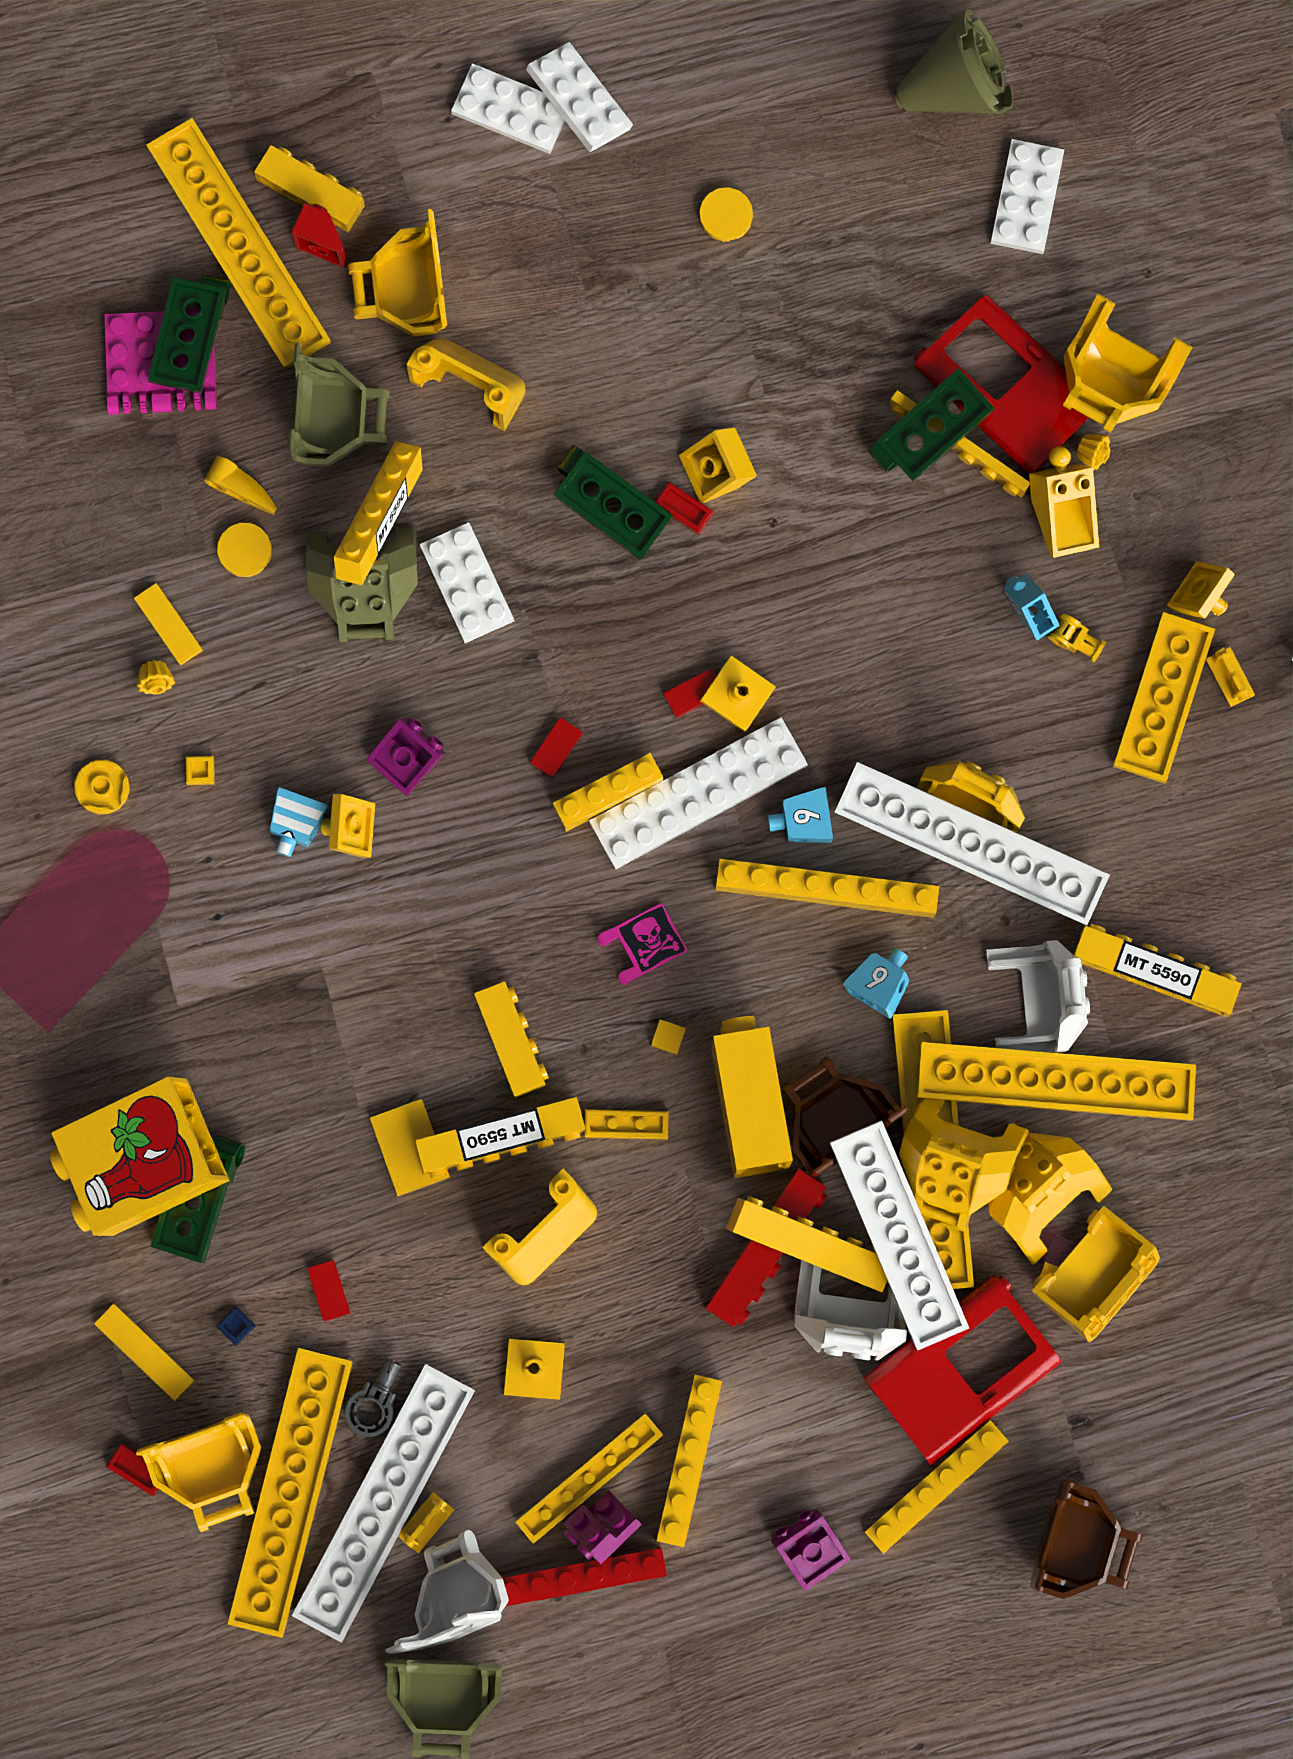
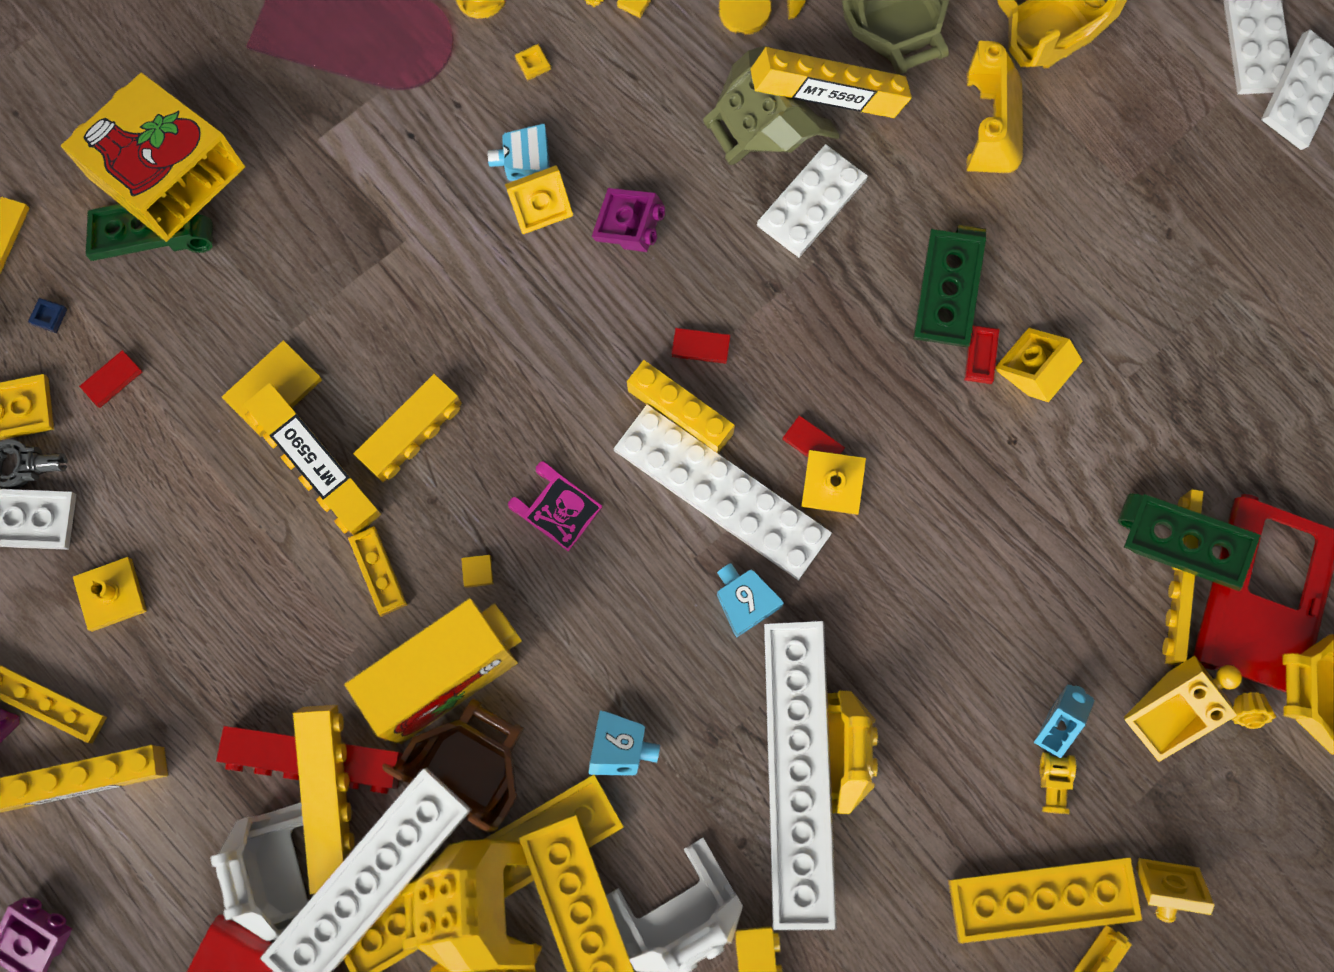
camera: 70 degrees right, 5 degrees down
(550, 1237) = (266, 555): yellow windscreen -> none
(726, 214) = (1275, 265): yellow tile -> none
(827, 888) = (688, 653): yellow brick -> none

